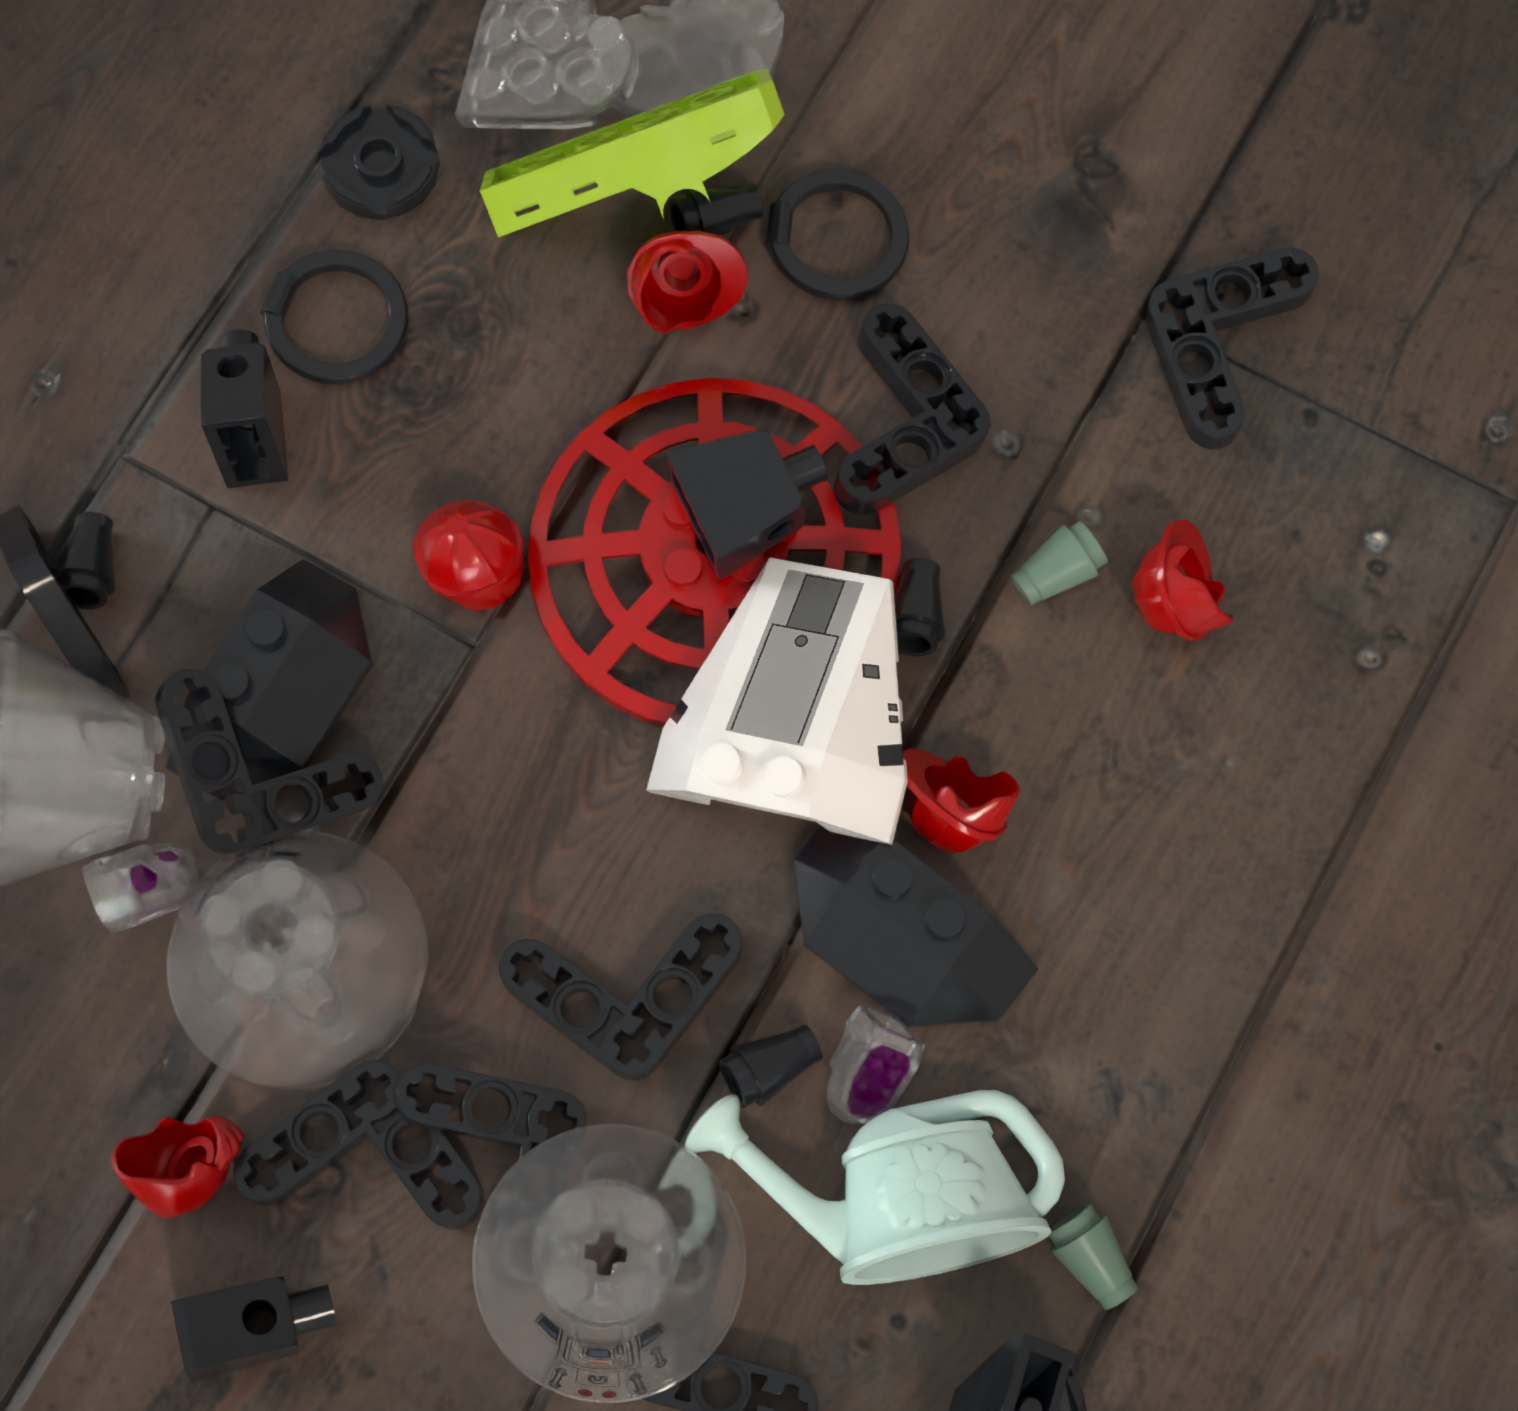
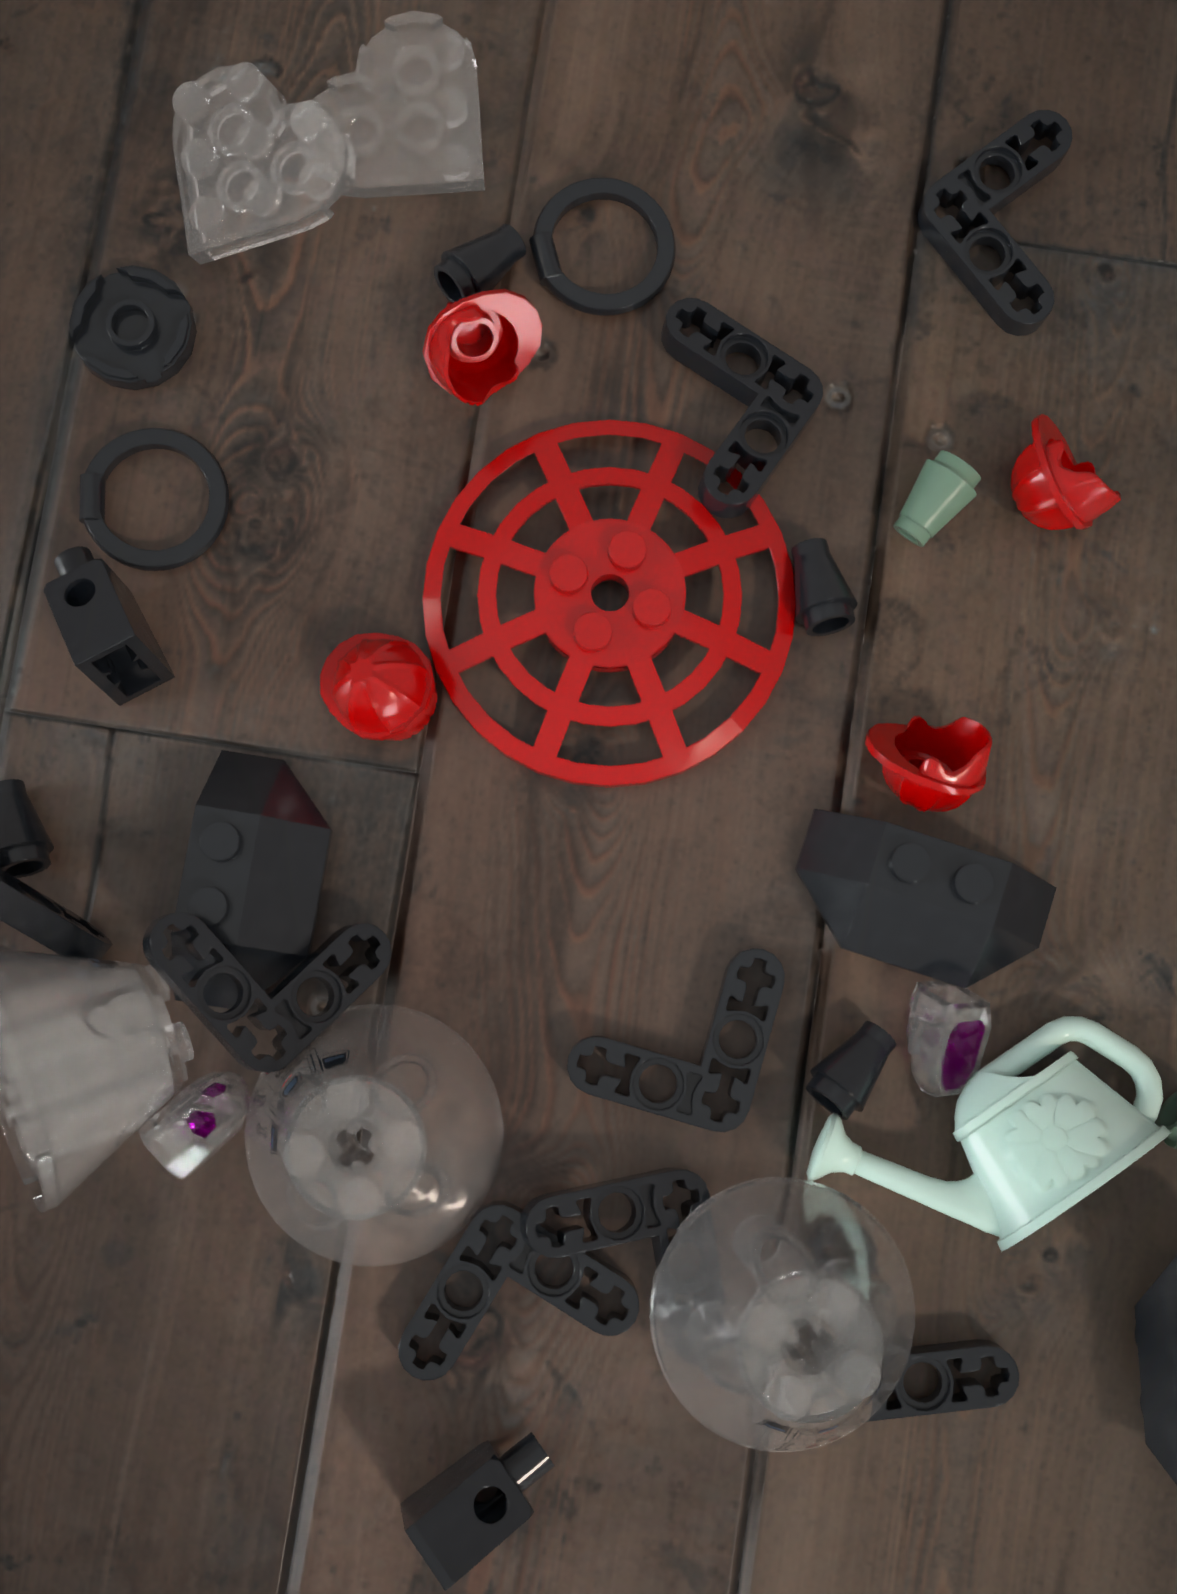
camera: 25 degrees left, 10 degrees up
(177, 1163) = (345, 1376): red hair -> none
(650, 152) = (401, 226): lime piece -> none
(743, 494) = (628, 541): black torso -> none
(797, 706) = (755, 730): white wedge -> none

